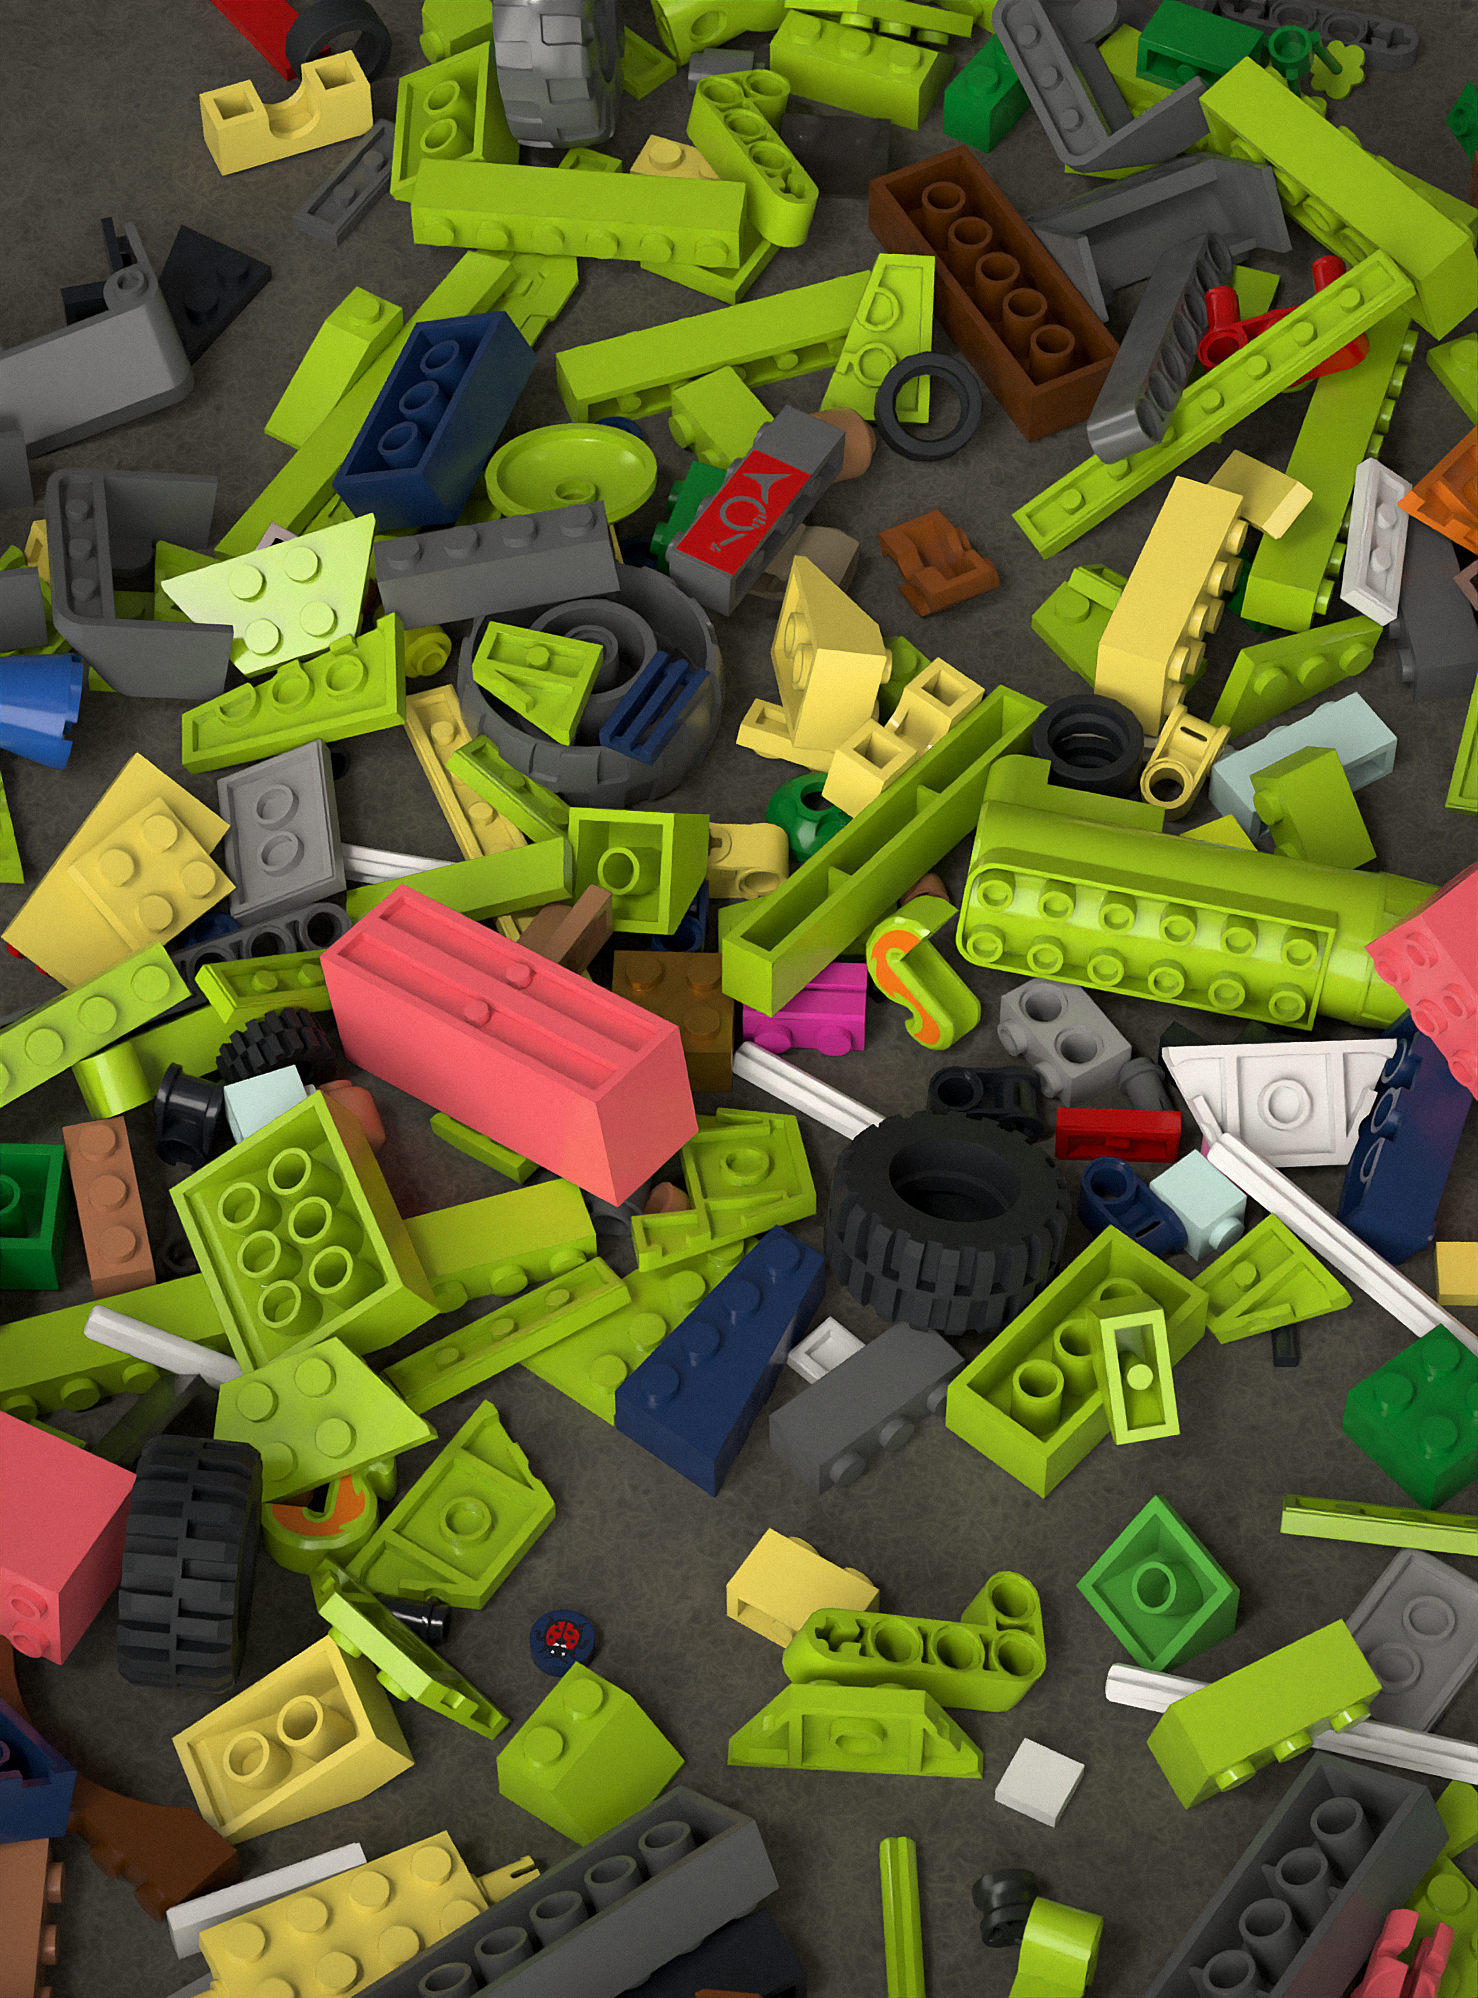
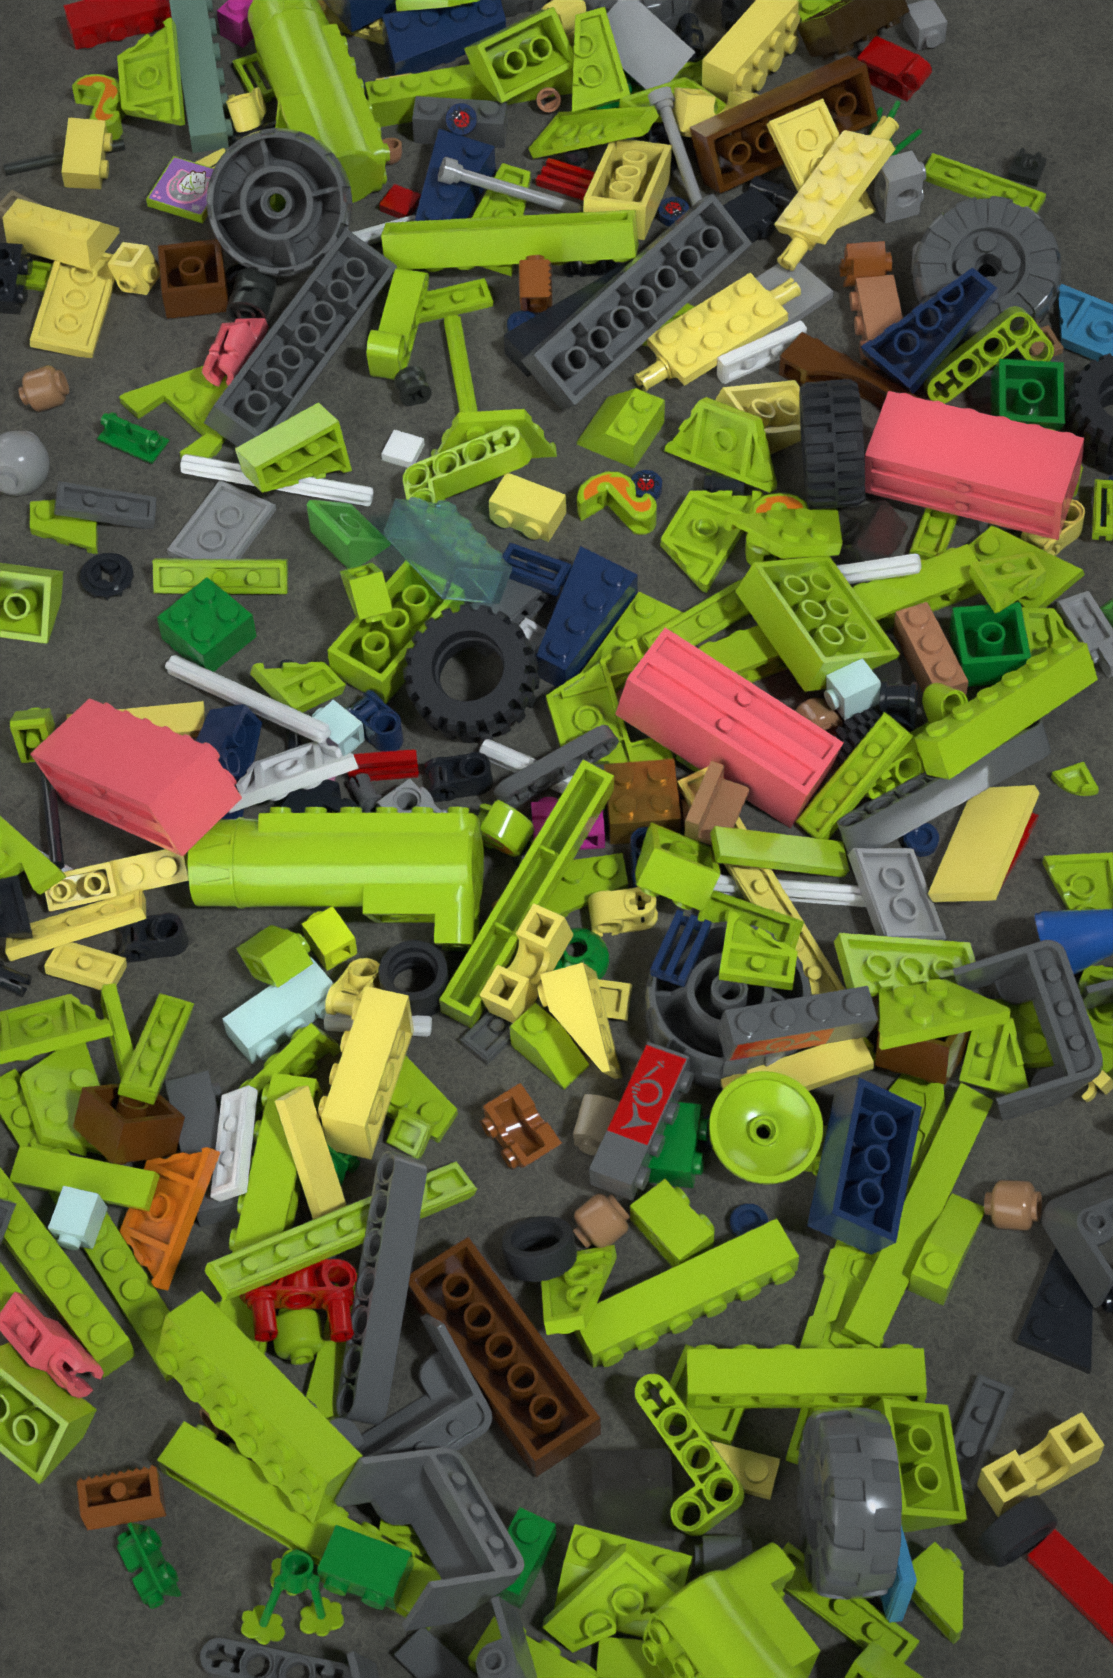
camera: 175 degrees right, 5 degrees up
(150, 877) = (962, 838): light yellow plate -> none
(226, 409) = (1013, 1205): none -> medium nougat head
(622, 1617) = (620, 495): none -> lime animal
(804, 1434) = (531, 573): none -> dark blue tile
(813, 1071) = (556, 766): none -> dark grey beam
(971, 1446) = (447, 551): none -> clear light blue piece

